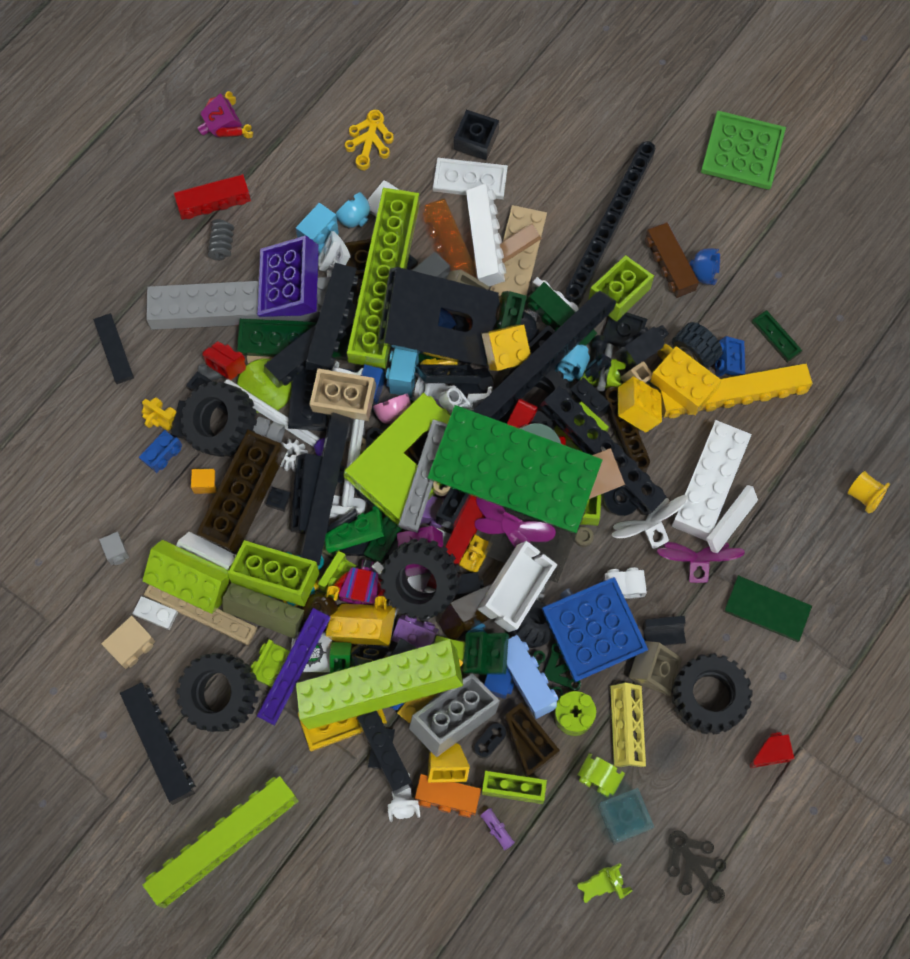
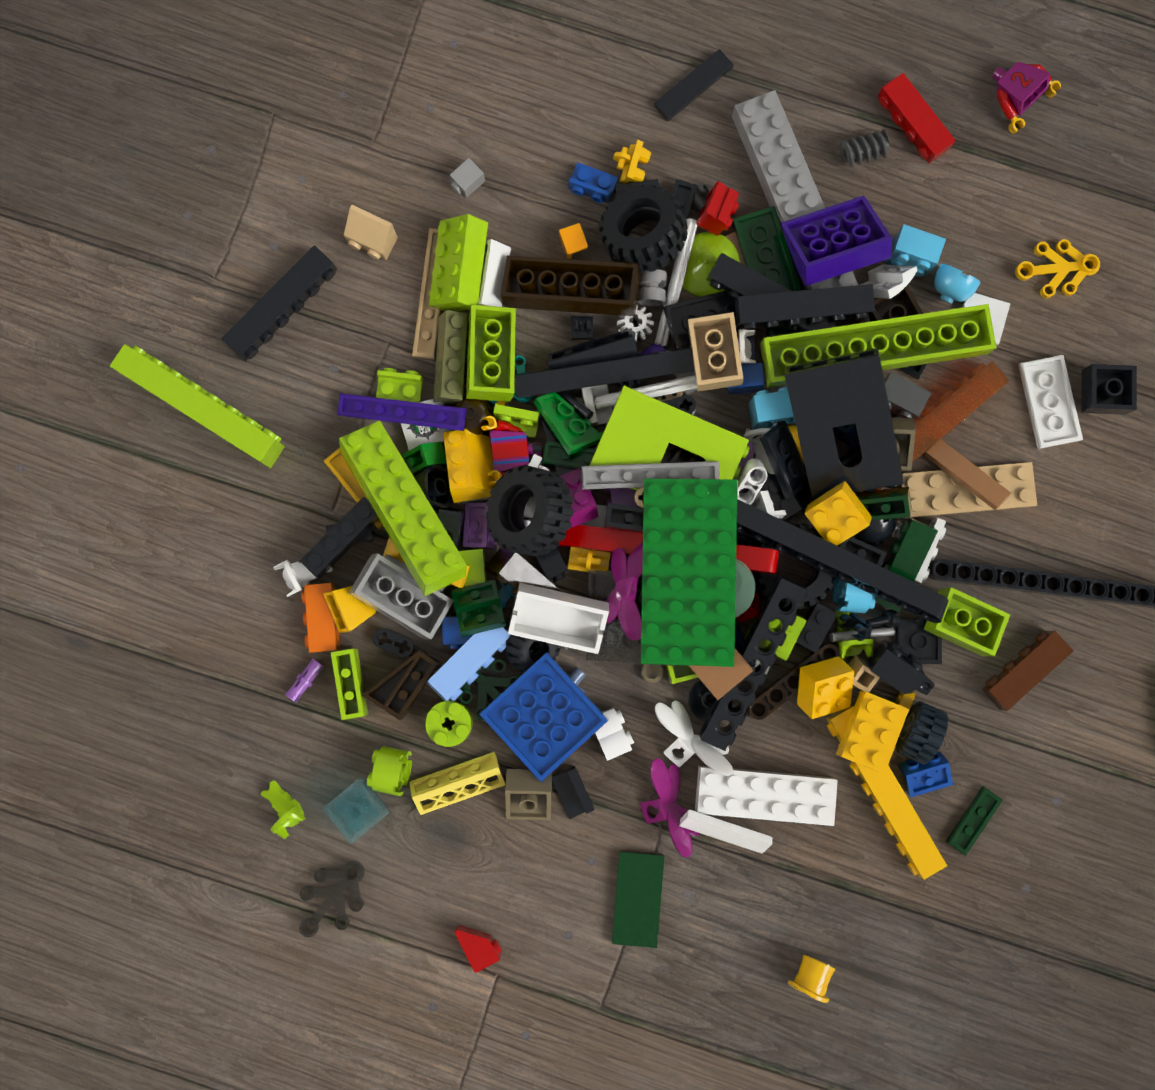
camera: 70 degrees right, 15 degrees up
(155, 613) = (414, 248): white plate -> none
(193, 688) = (328, 326): black tyre -> none
(390, 410) = (726, 413): bright pink cylinder -> none
(485, 235) = (978, 444): white brick -> none
(706, 265) = (1033, 713): blue cylinder -> none
(725, 672) = (517, 895): black tyre -> none

